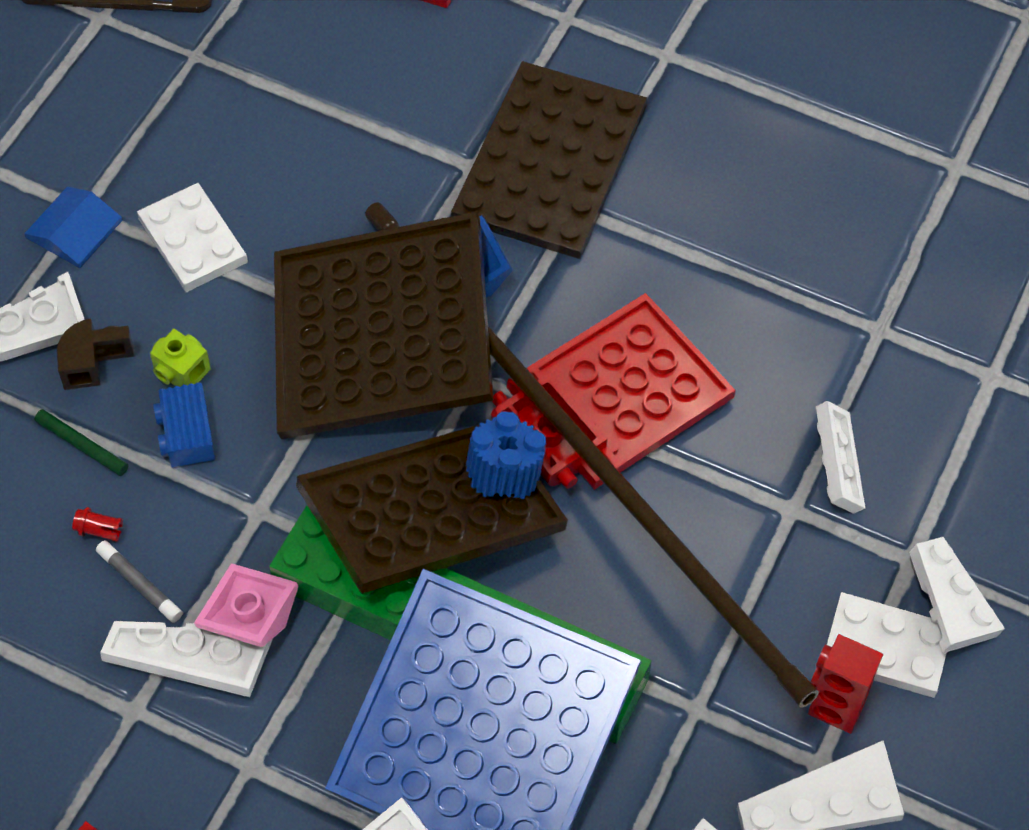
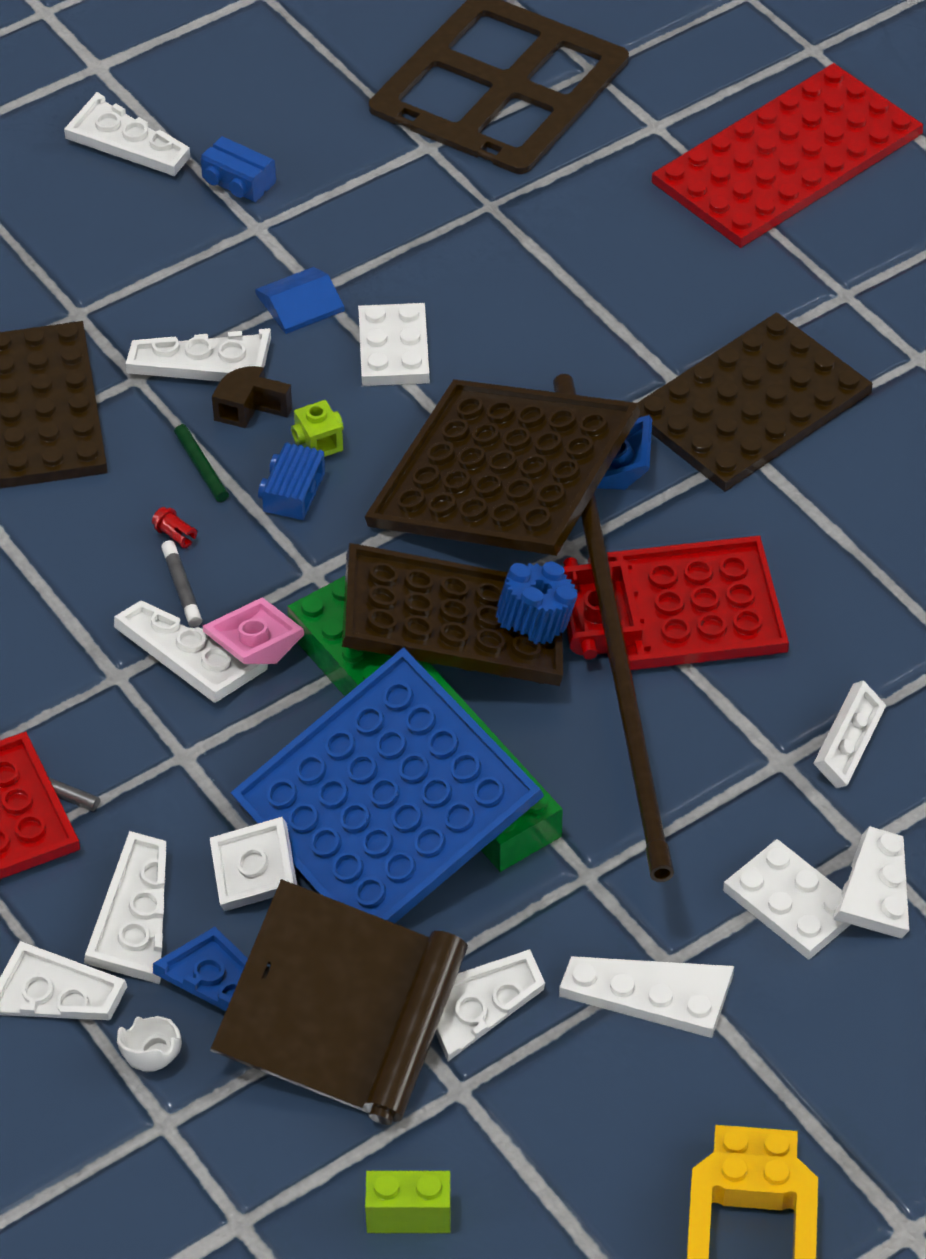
camera: 30 degrees right, 10 degrees down
(843, 682) = (716, 893): red brick -> none

